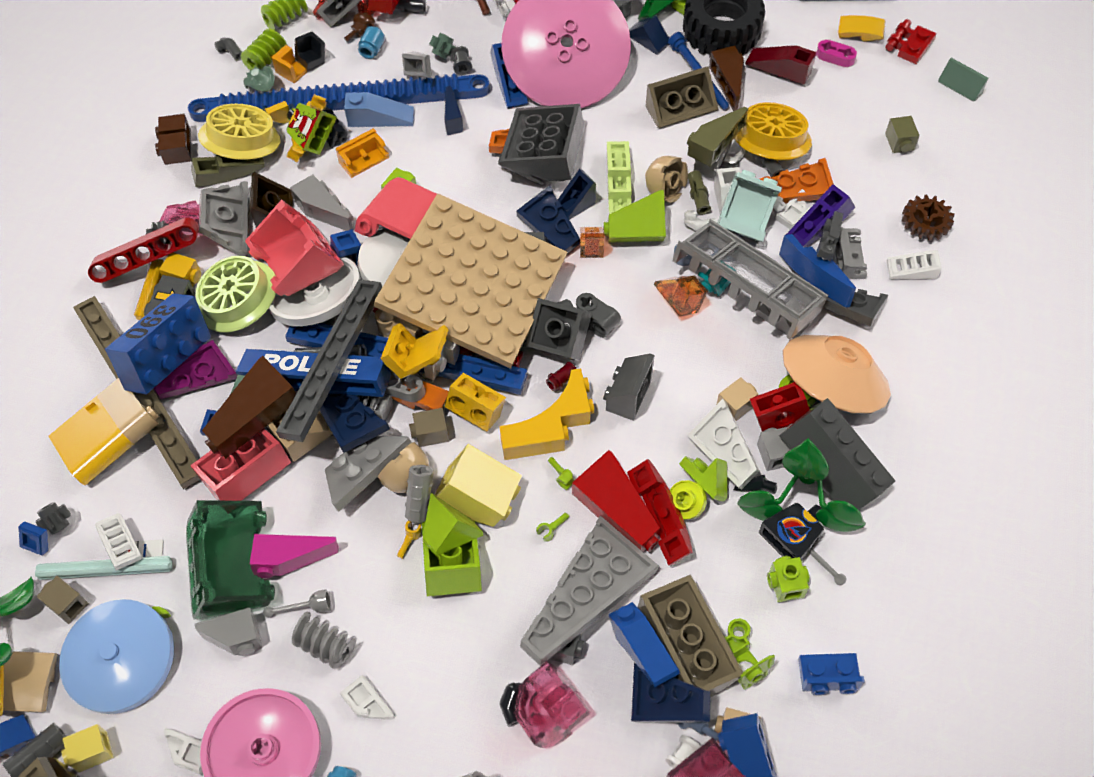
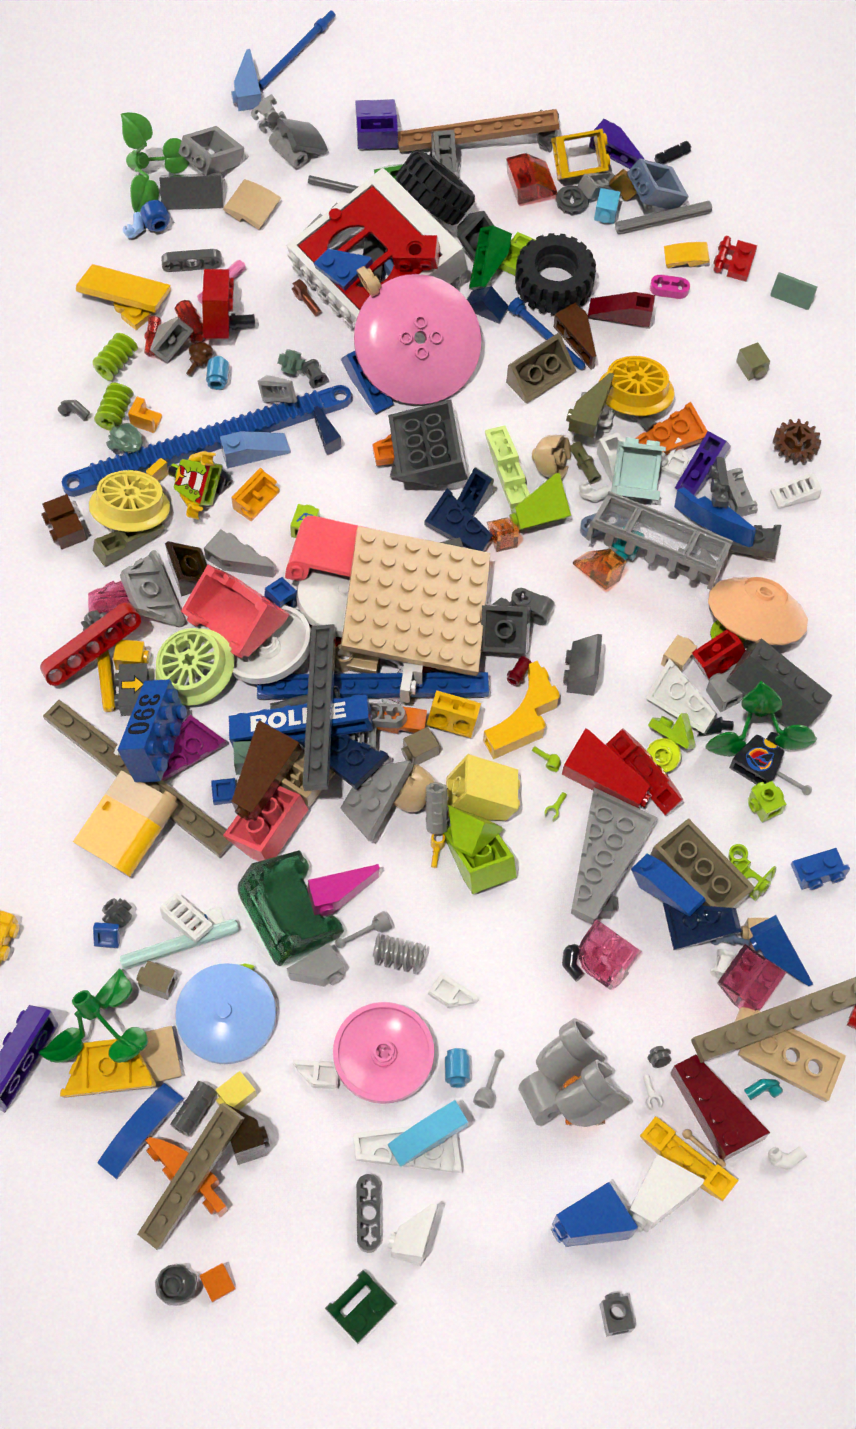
camera: 20 degrees left, 5 degrees up
(309, 50) = (161, 396): black panel -> none
(408, 355) = (393, 683): yellow bracket -> none

